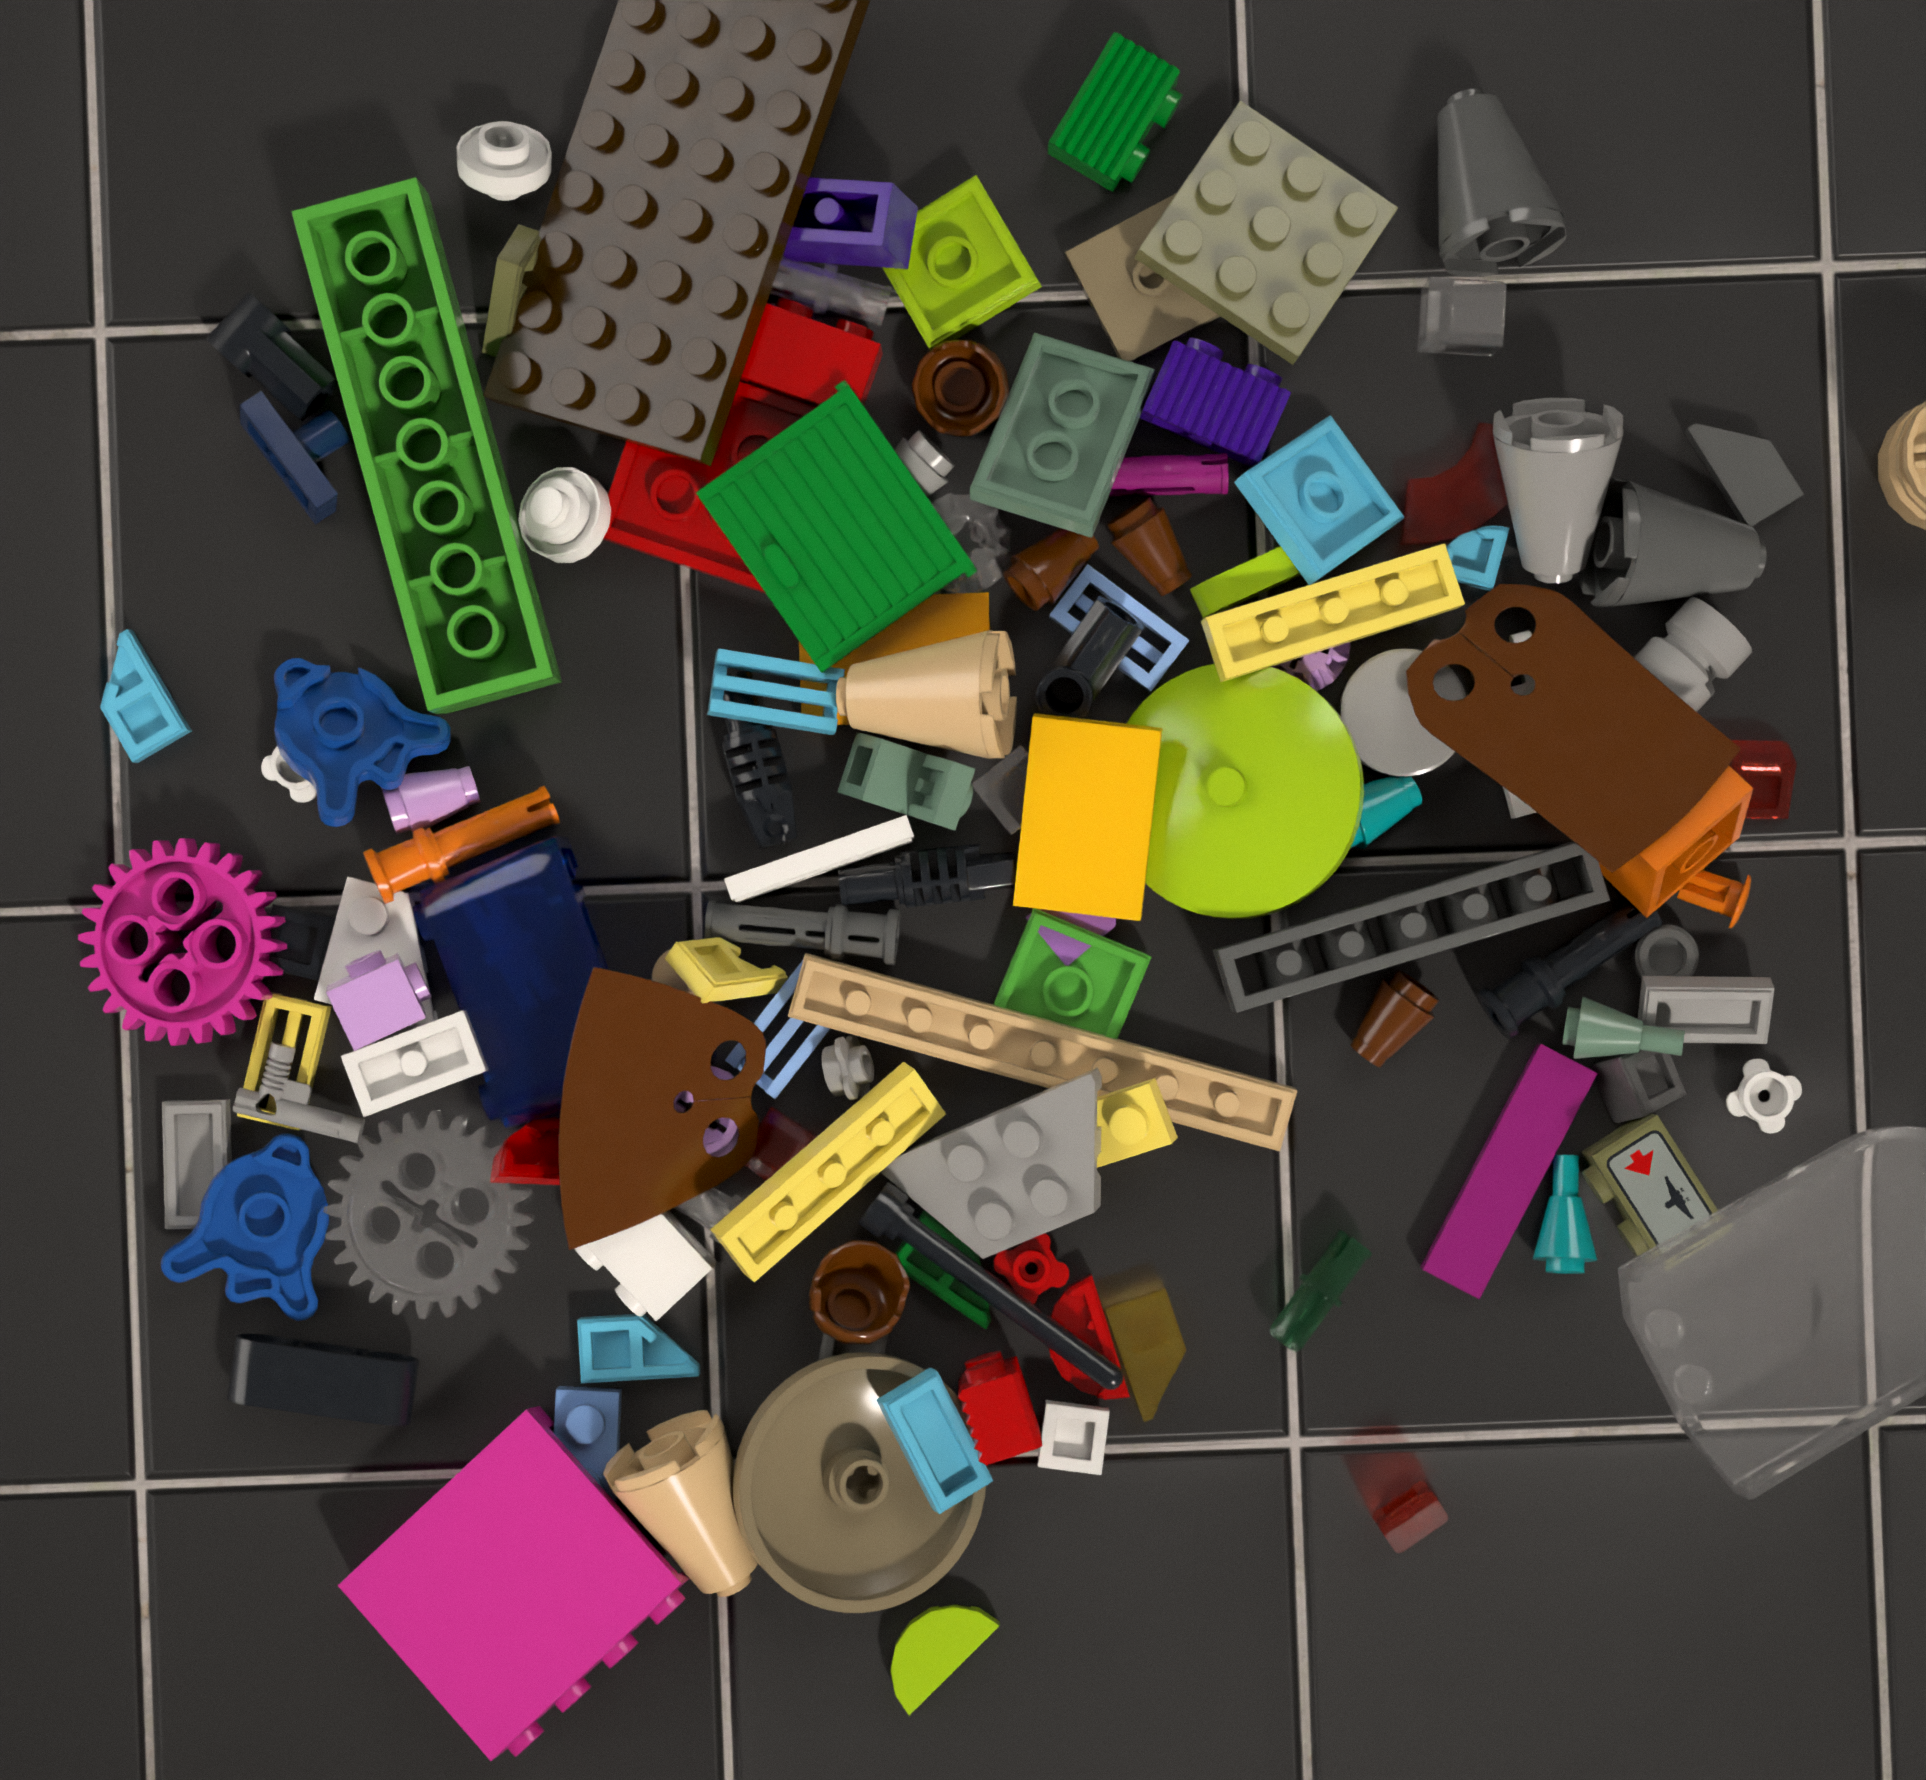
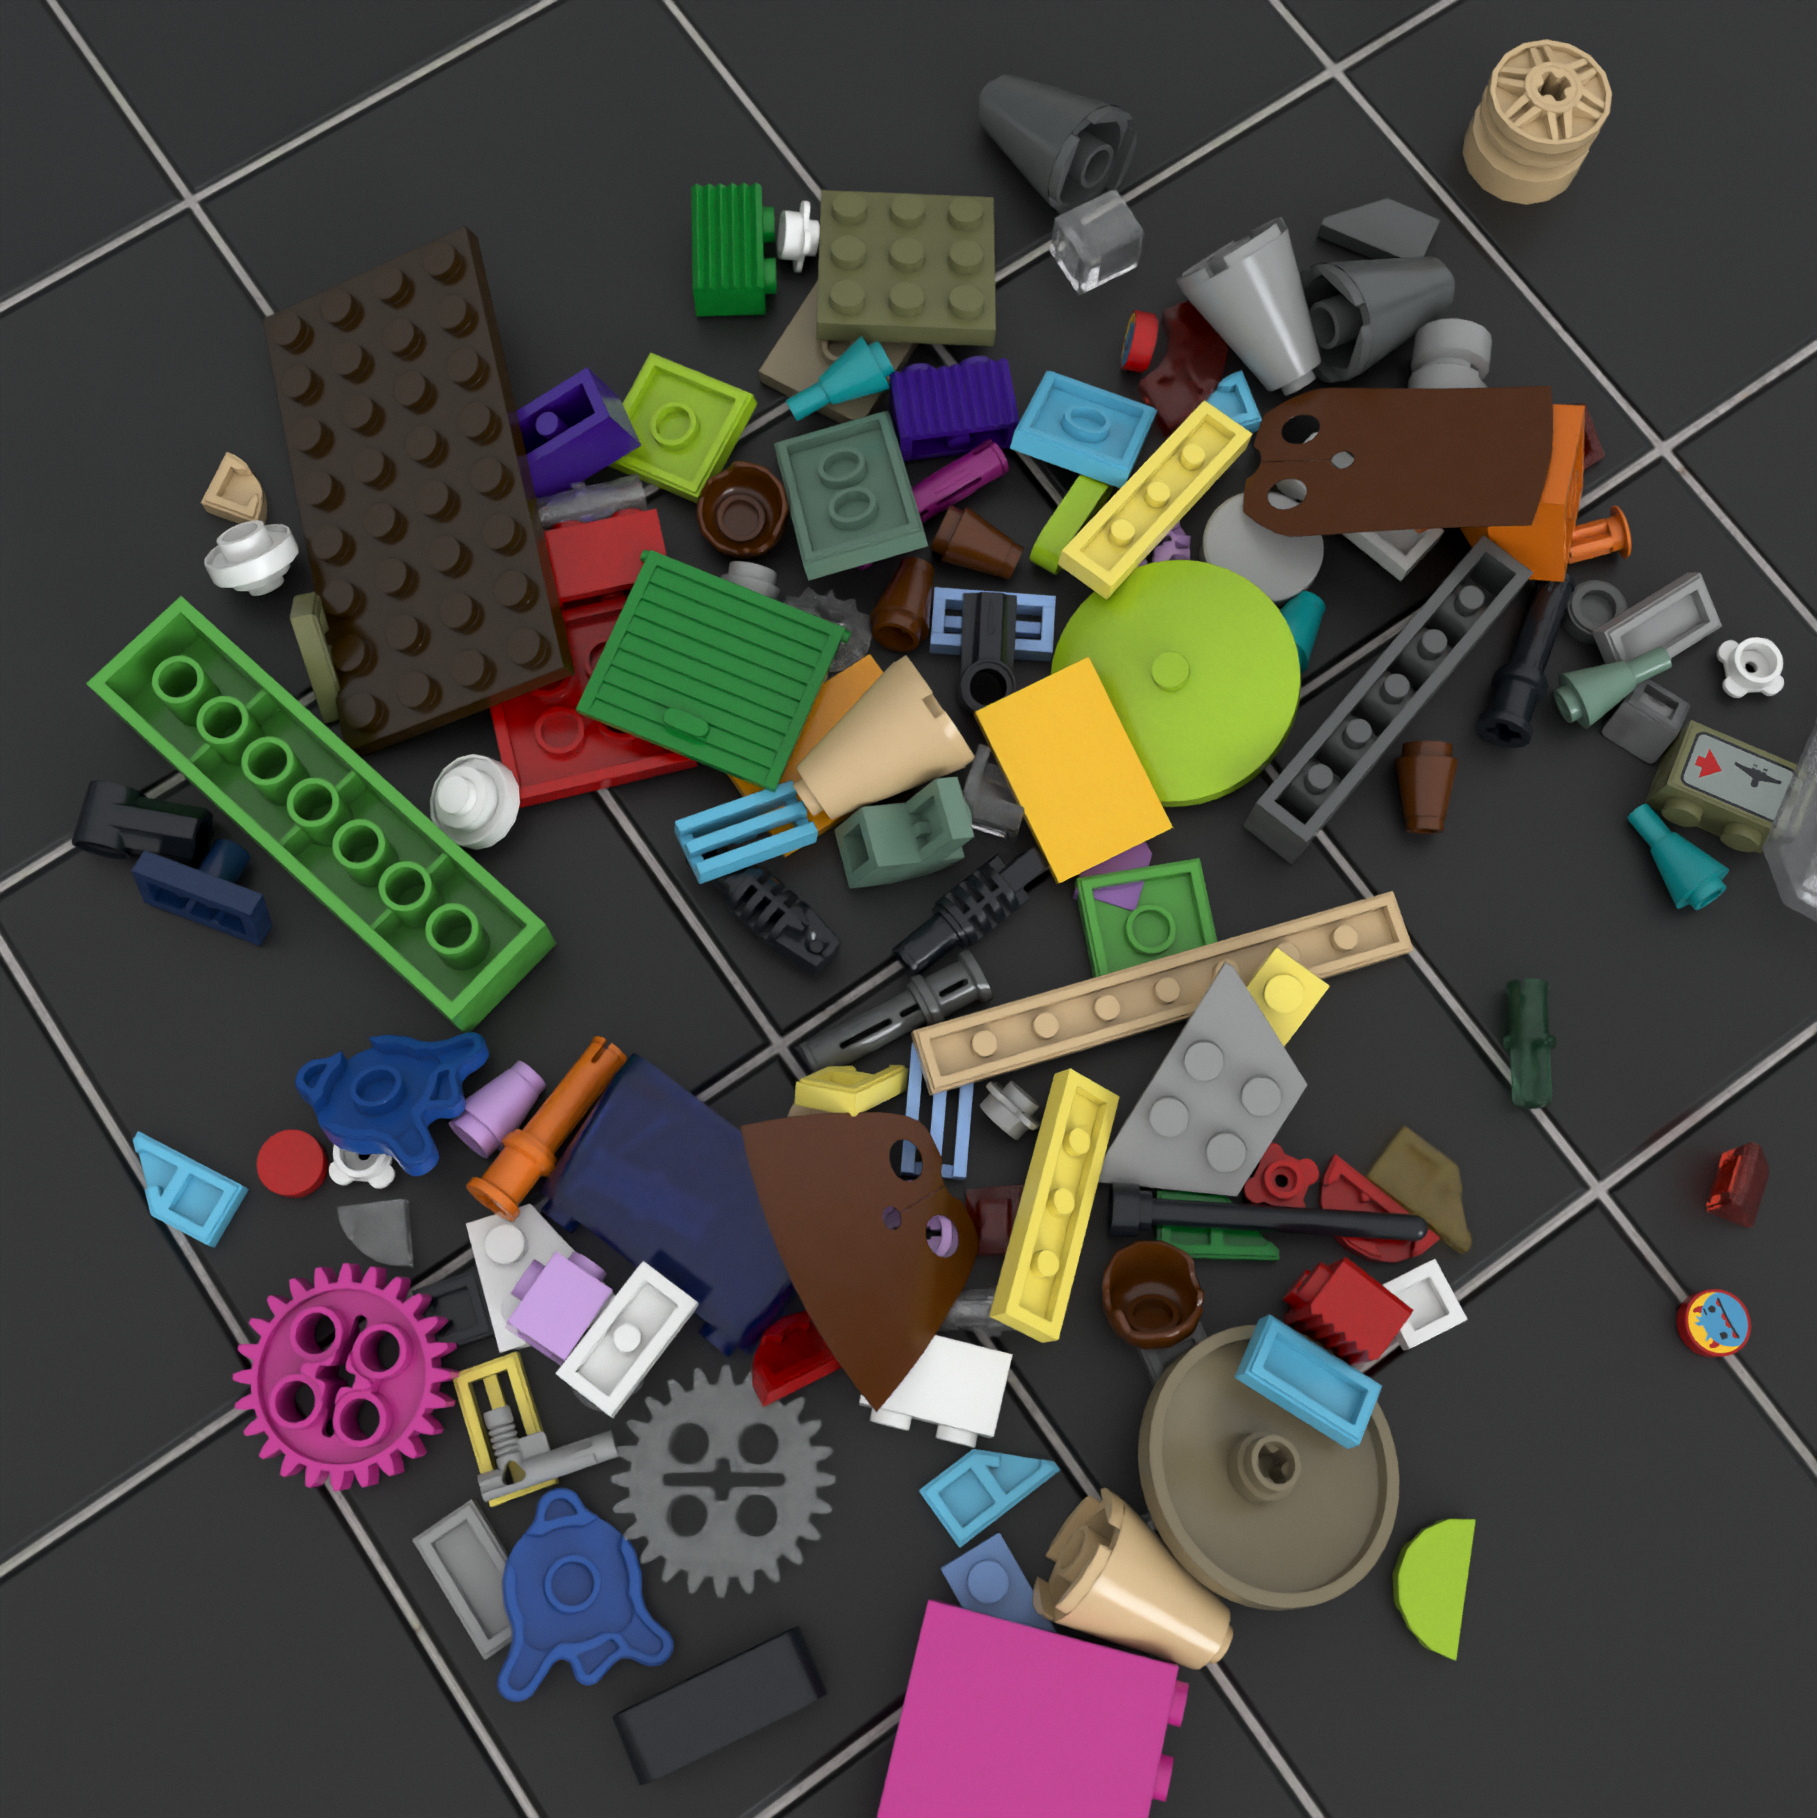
camera: 30 degrees left, 15 degrees down
(237, 735) = (292, 1163): none -> red tile
(276, 836) = (380, 1230): none -> clear tile
(529, 79) = (235, 493): none -> tan tile
(820, 859) = (872, 949): white tile -> none
(1145, 318) = (853, 375): none -> teal cone
(1186, 136) = (797, 236): none -> white plate
(1305, 1605) = (1713, 1323): none -> tile
(1432, 442) = (1139, 341): none -> red tile
(1508, 1170) = (1603, 852): magenta tile -> none

